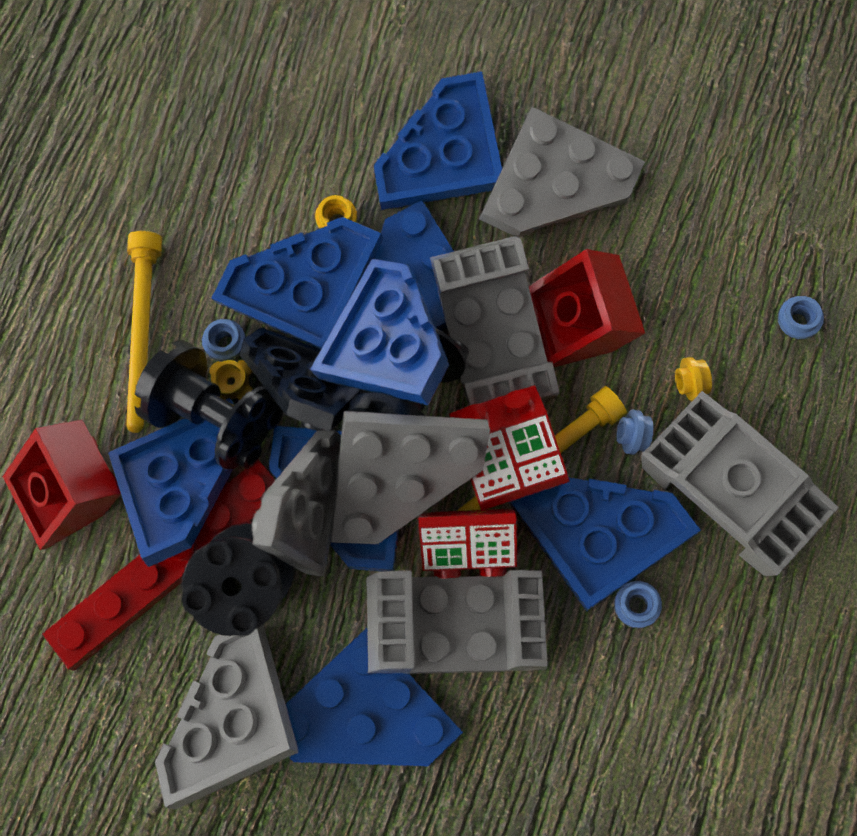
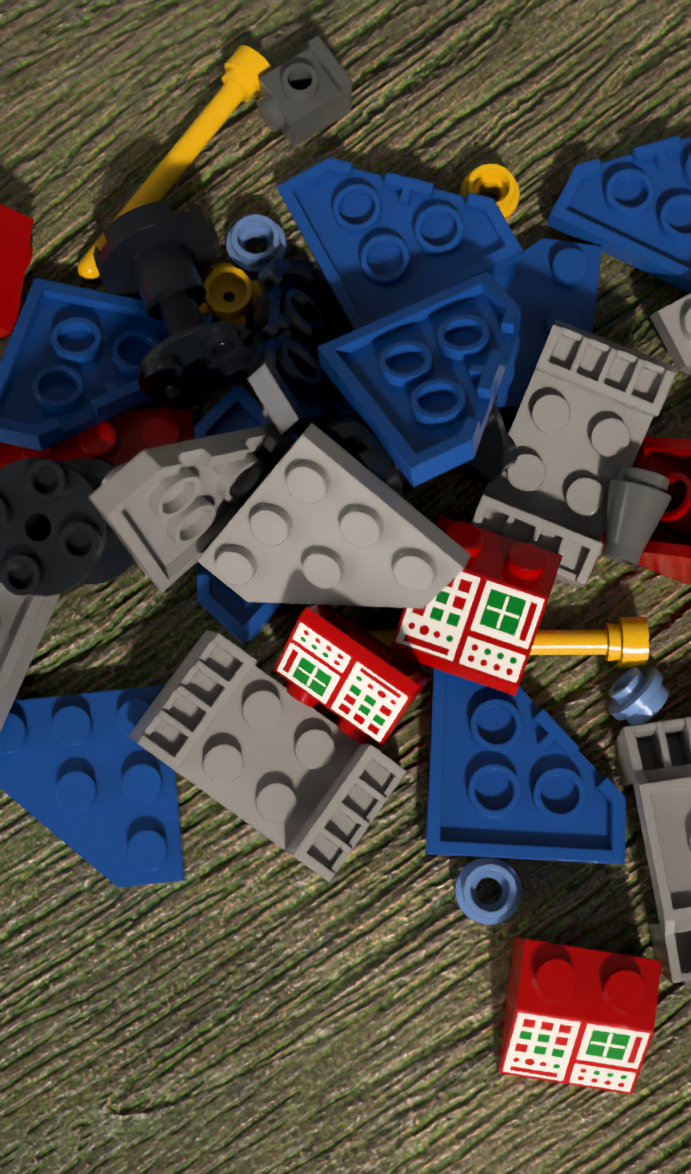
camera: 25 degrees right, 5 degrees up
(194, 246) = (305, 93): none -> dark grey brick
(555, 332) = (633, 512): none -> dark grey cone
(740, 634) = (578, 1015): none -> red slope

